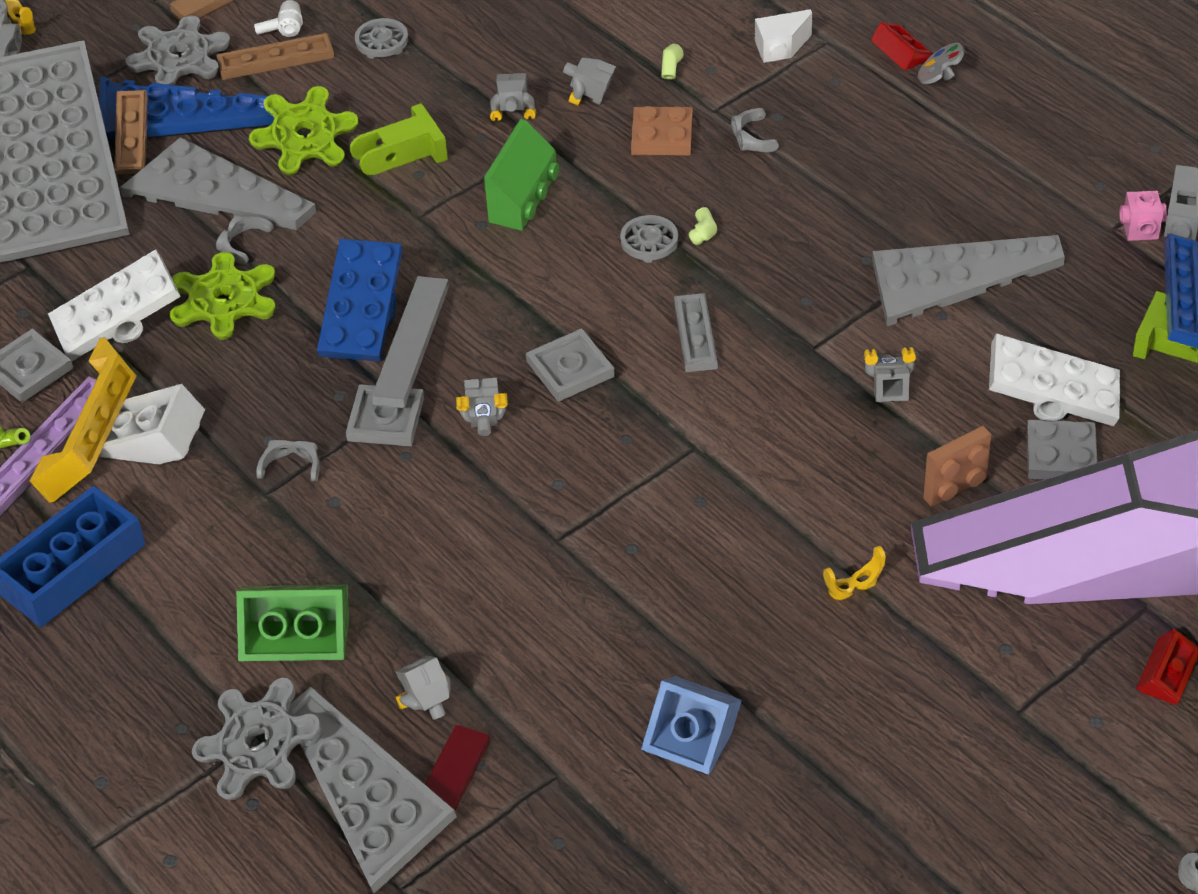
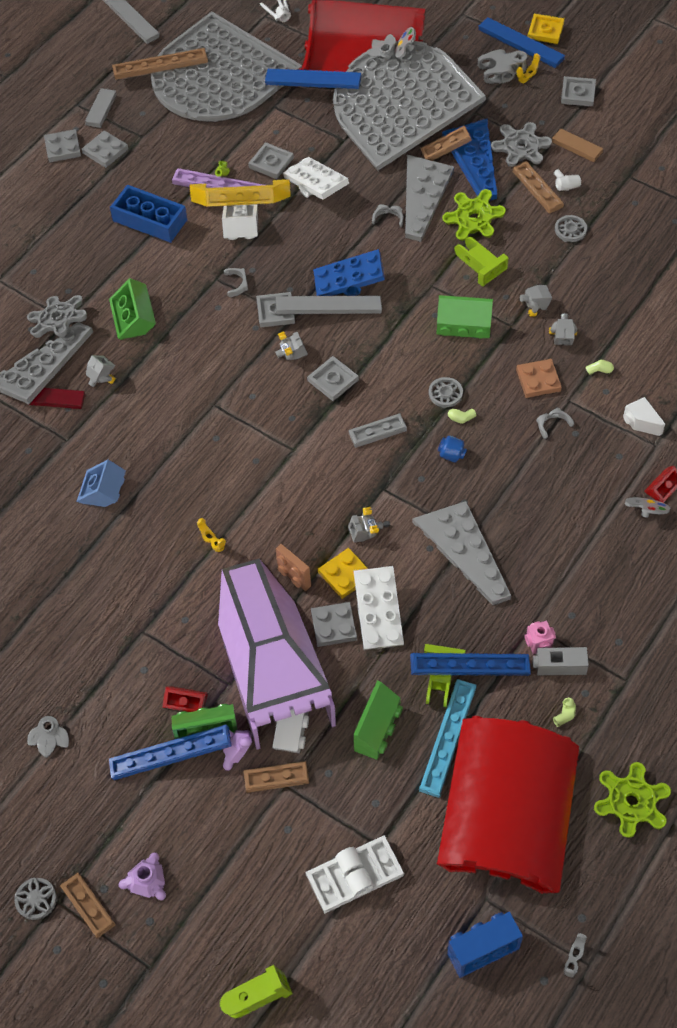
camera: 75 degrees right, 10 degrees up
(220, 280) = (338, 212): lime plate -> none
(770, 245) = (452, 448): none -> blue head
(964, 412) = (340, 572): none -> yellow plate

